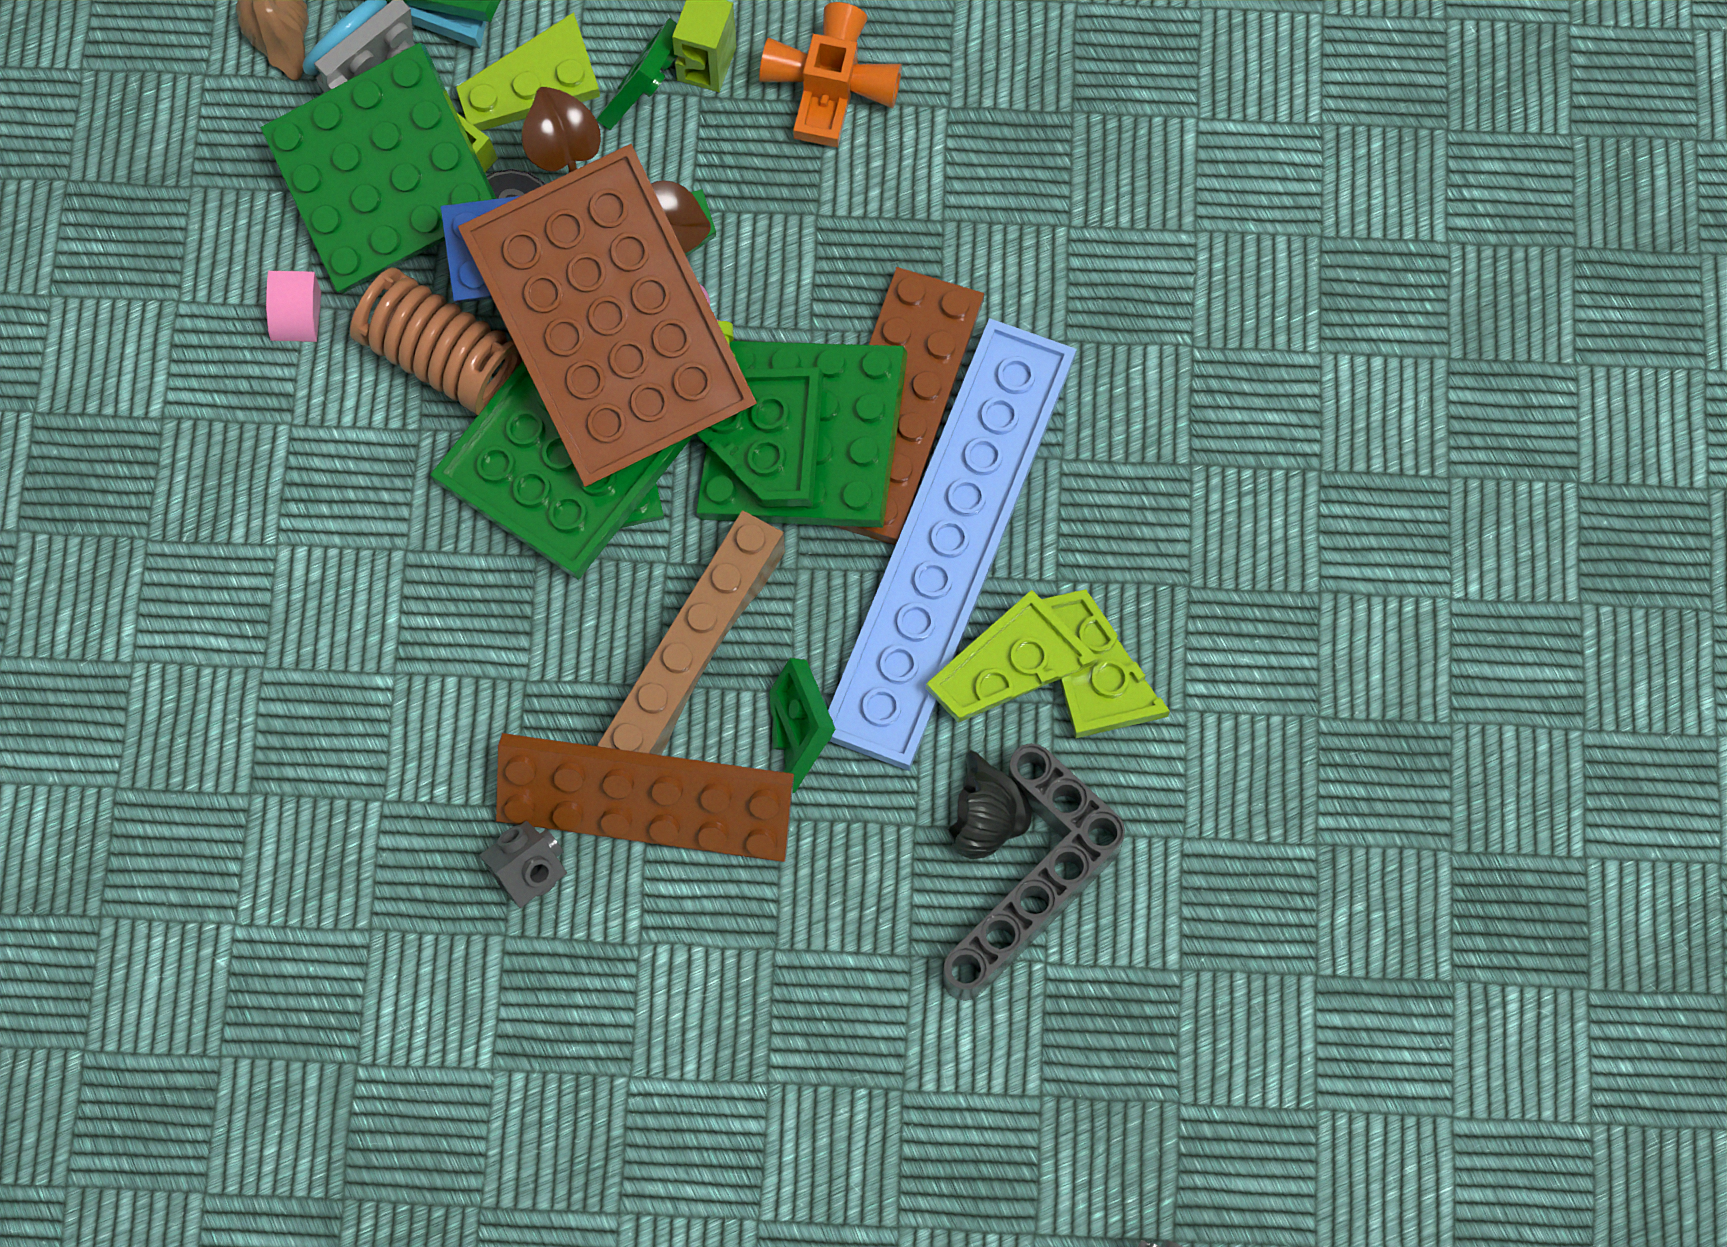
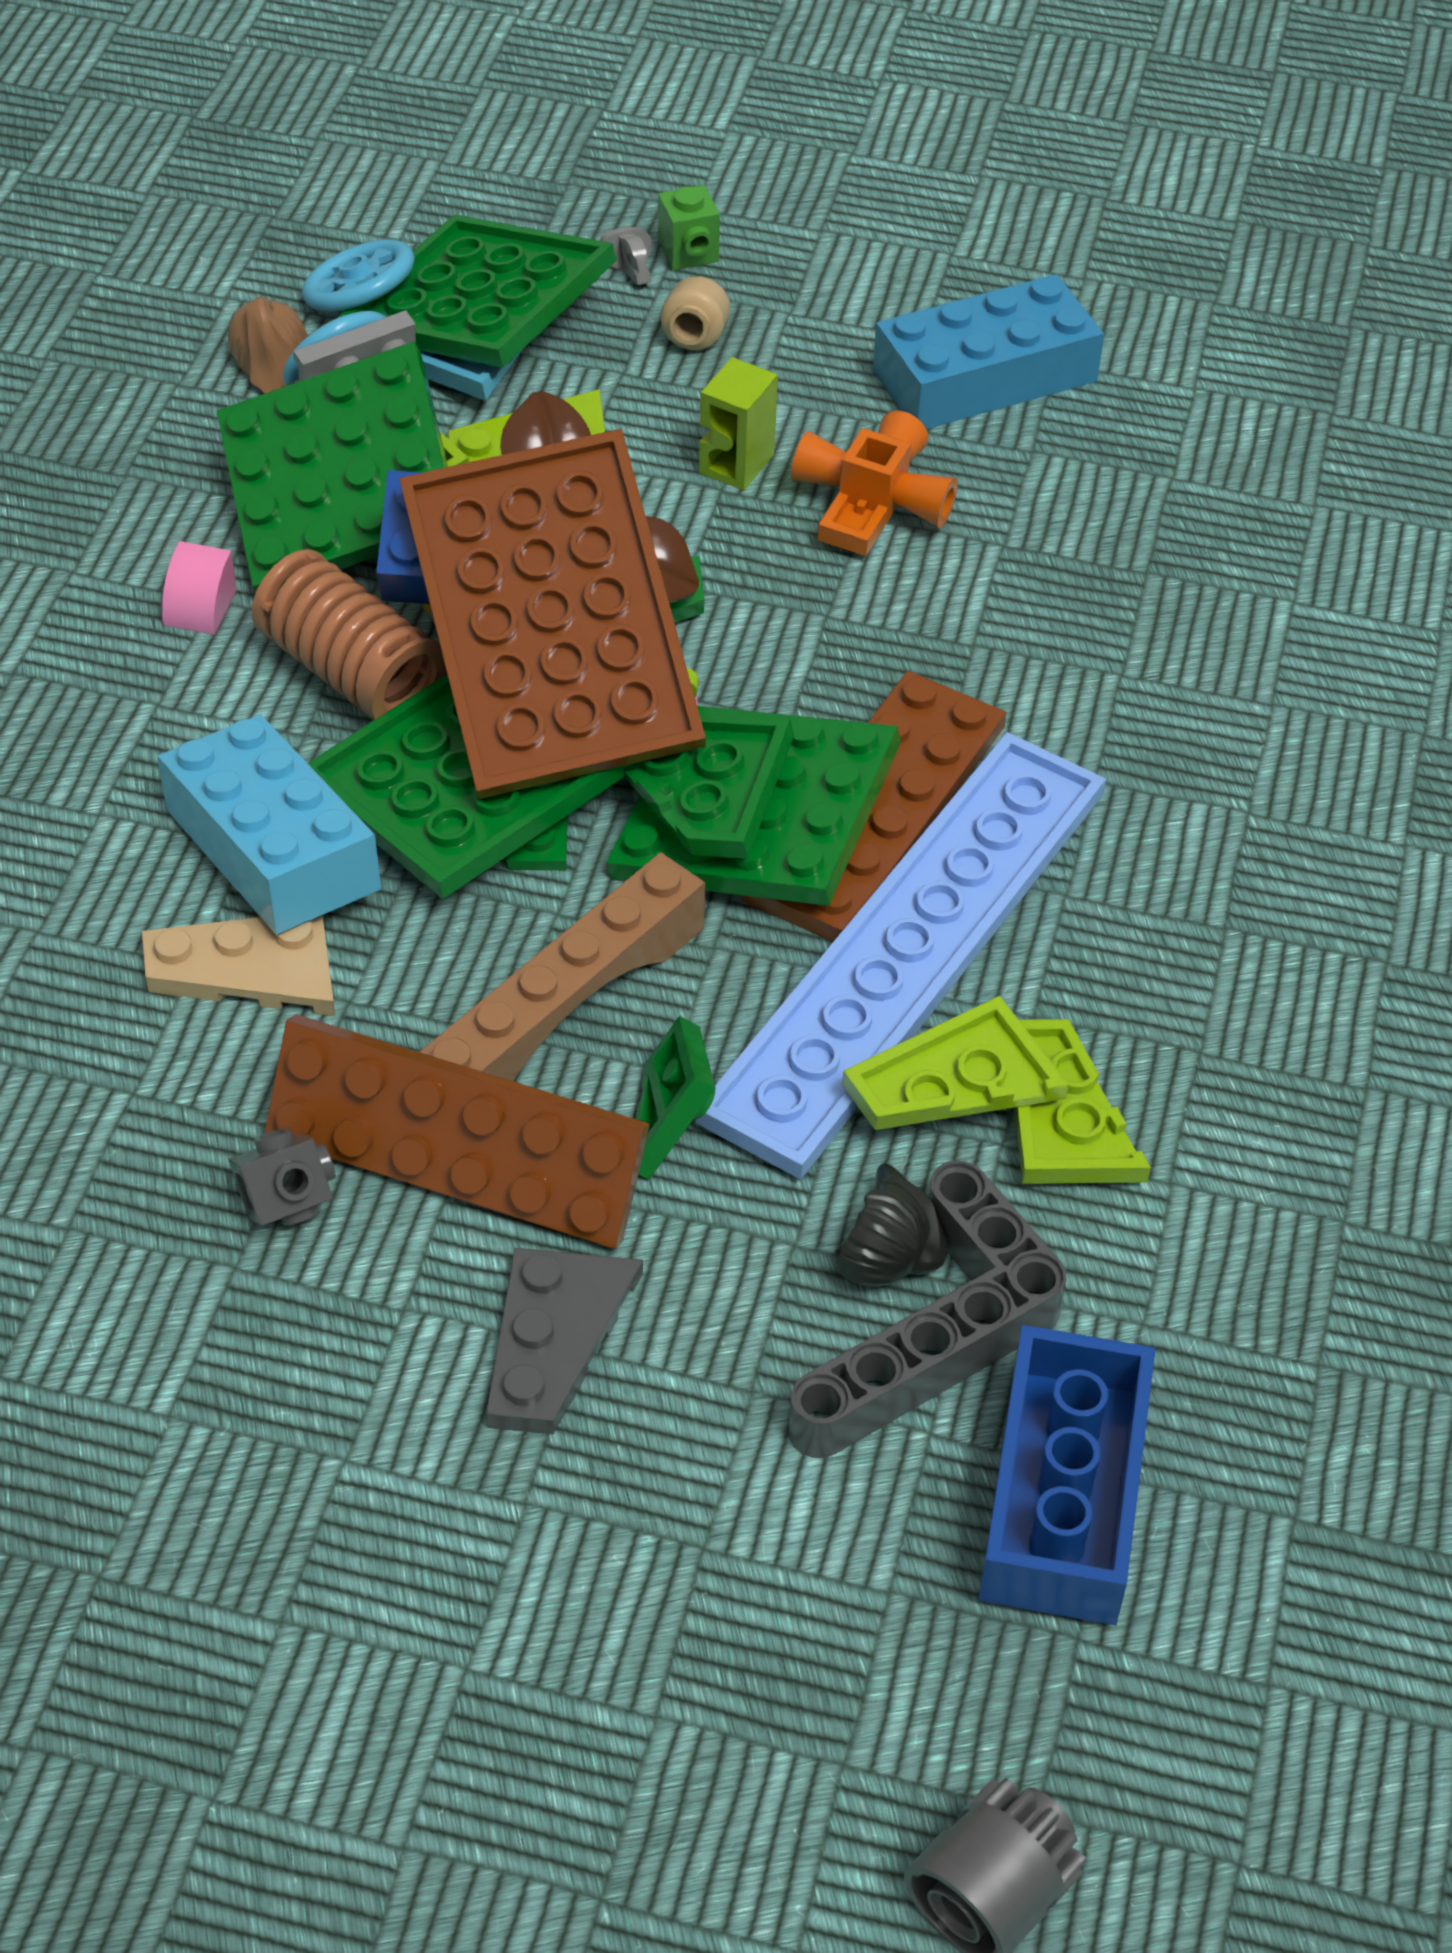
camera: 10 degrees right, 20 degrees down
(423, 541) = (269, 823): none -> medium azure brick
(436, 662) = (241, 961): none -> tan wing
(643, 75) = (666, 439): green wing -> none
(754, 941) = (550, 1331): none -> dark grey wing
(1153, 987) = (1068, 1475): none -> blue brick

